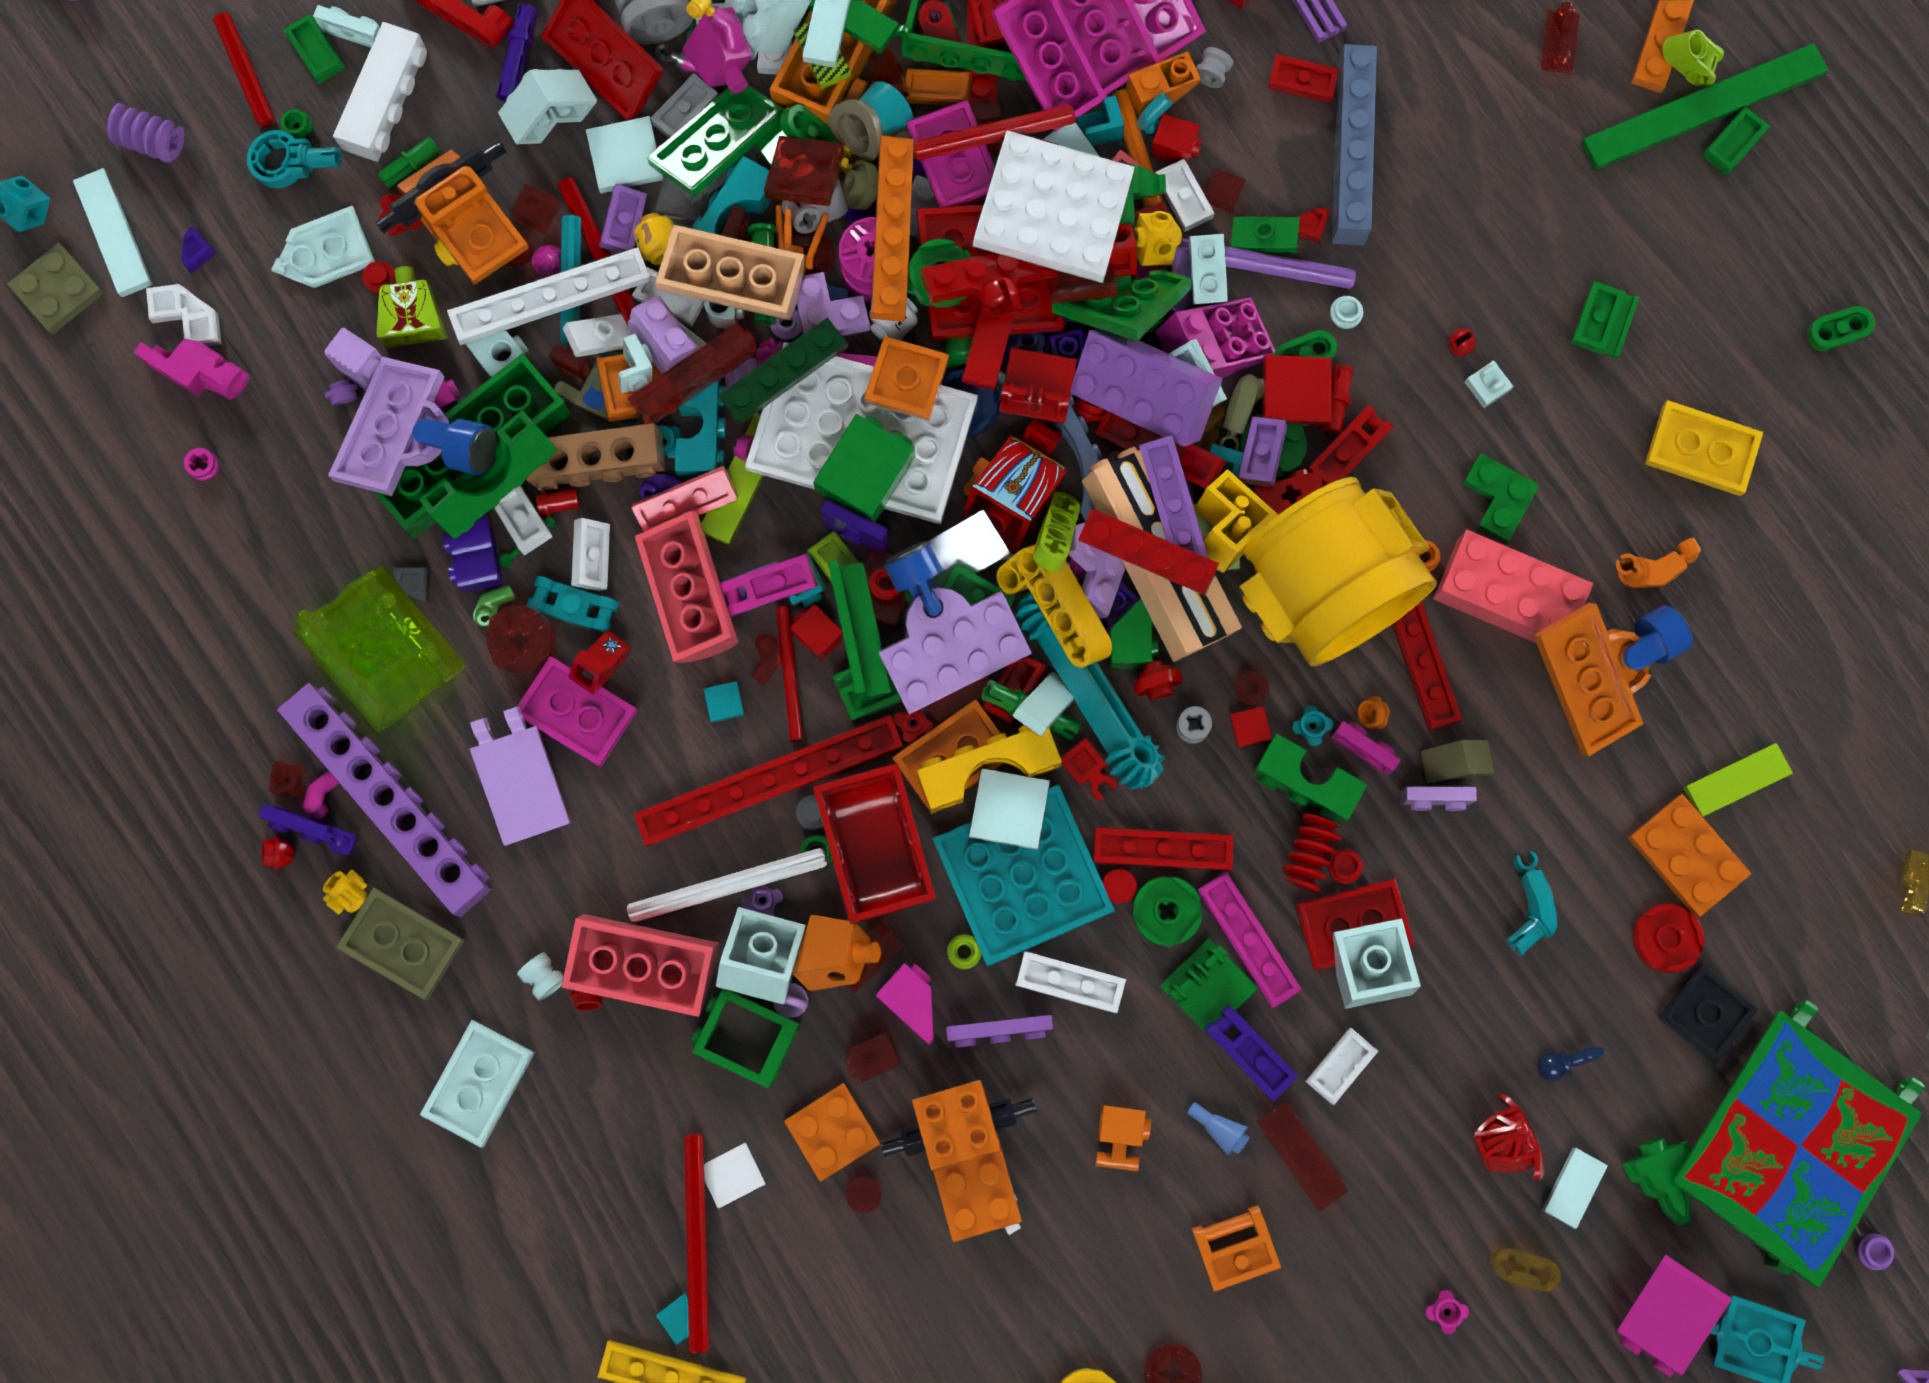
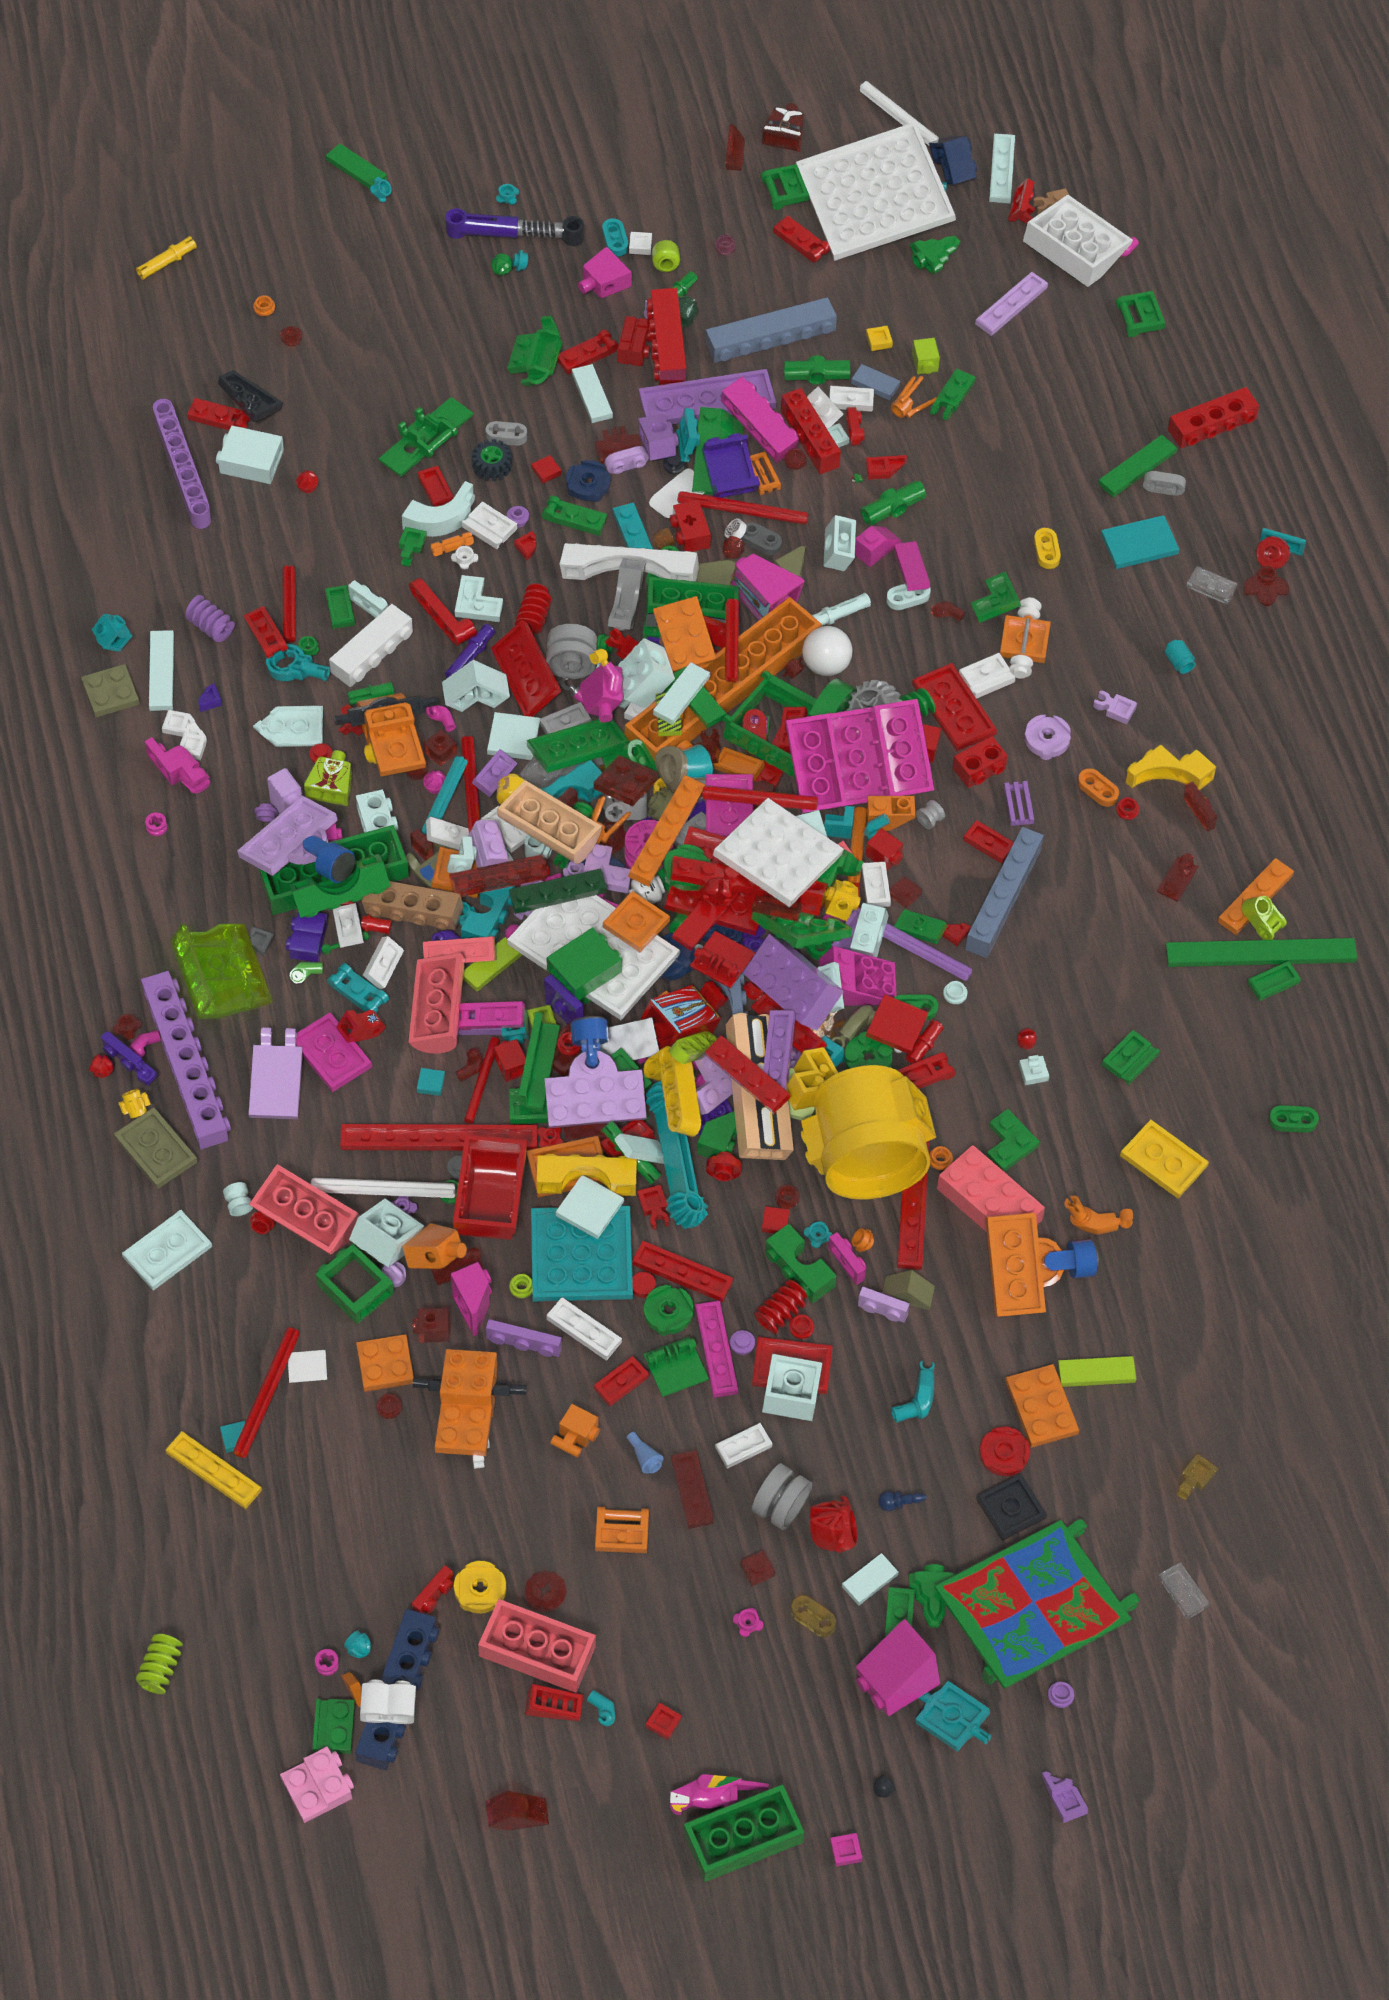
camera: 20 degrees right, 20 degrees down
(229, 125) = (265, 631): none -> red plate
(501, 641) = (308, 984): clear red plate -> none
(519, 159) = (442, 715): none -> dark pink arm
(548, 296) = (426, 798): white plate -> none
(1149, 1038) = (621, 1381): none -> red plate
(1190, 730) = (736, 1210): light grey wheel -> none
(1251, 1054) = (685, 1414): dark purple plate -> none
(1262, 451) = (856, 1050): medium lavender plate -> none
(1279, 919) = (742, 1342): none -> medium lavender plate
(1427, 1230) = (757, 1568): none -> clear red plate
(1428, 1130) = (781, 1496): none -> light grey wheel
(1633, 1225) = (899, 1607): none -> green plate

